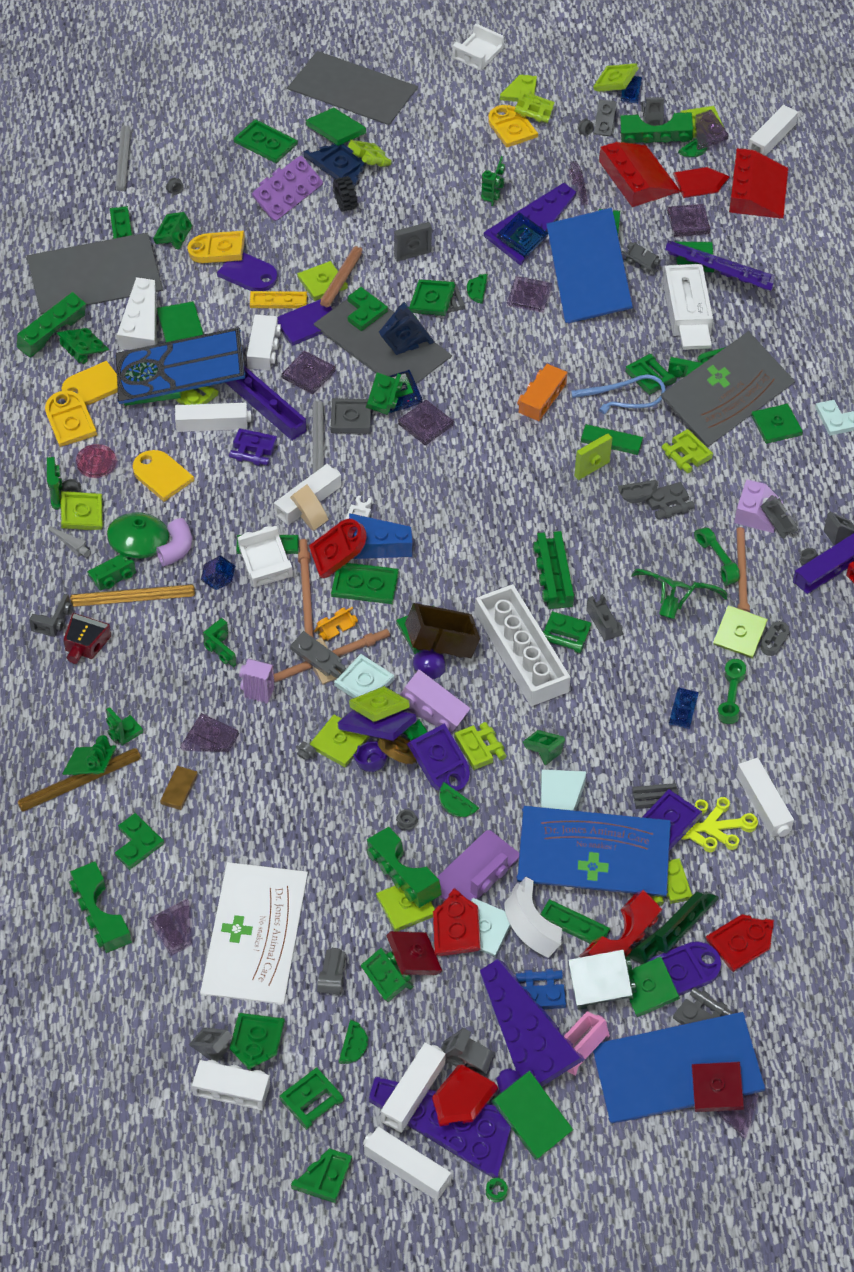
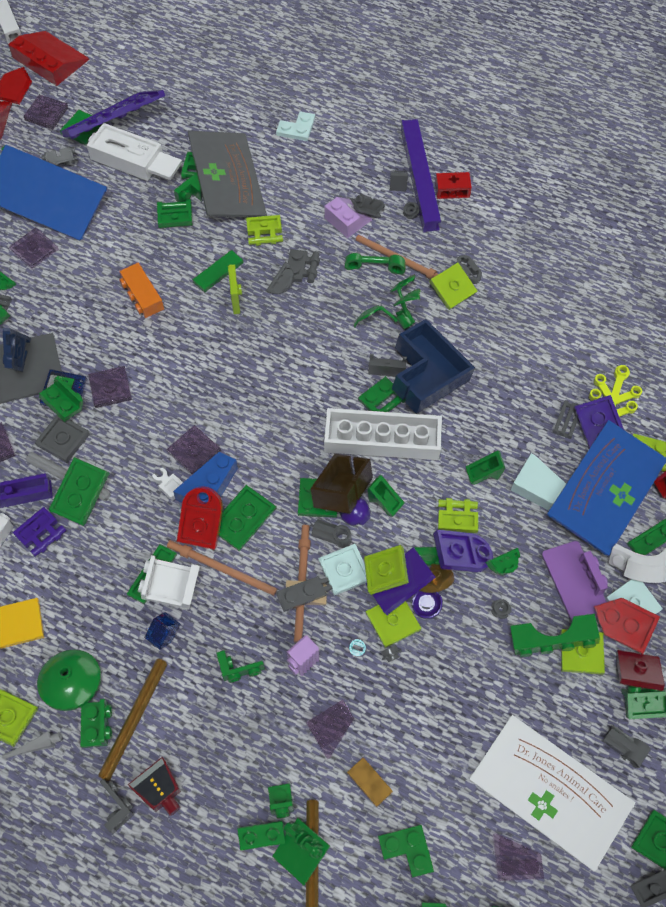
camera: 60 degrees left, 10 degrees up
(85, 725) = (261, 835): none -> green hinge
(179, 544) = (106, 648): lavender cylinder -> none
(290, 723) = (355, 652): none -> hinge
(307, 452) = (79, 491): none -> green tile
(310, 506) = (142, 519): tan slope -> none
(322, 484) = (123, 514): white brick -> none
(342, 618) = (271, 553): light orange hinge -> none
(393, 654) = (330, 533): none -> dark grey piece
(407, 511) = (193, 449): none -> clear purple plate
(433, 702) = (401, 528): lavender wedge -> none
(457, 674) = (385, 496): none -> green slope
(554, 570) = (322, 374): green brick -> none
(605, 407) = (184, 259): medium blue piece -> none
(622, 656) = (435, 367): none -> dark blue piece
(683, 708) = (496, 358): clear blue slope -> none
(735, 673) = (520, 332): green piece -> none
(765, 798) = (609, 350): white brick -> none
(776, 423) = (276, 164): green plate -> none

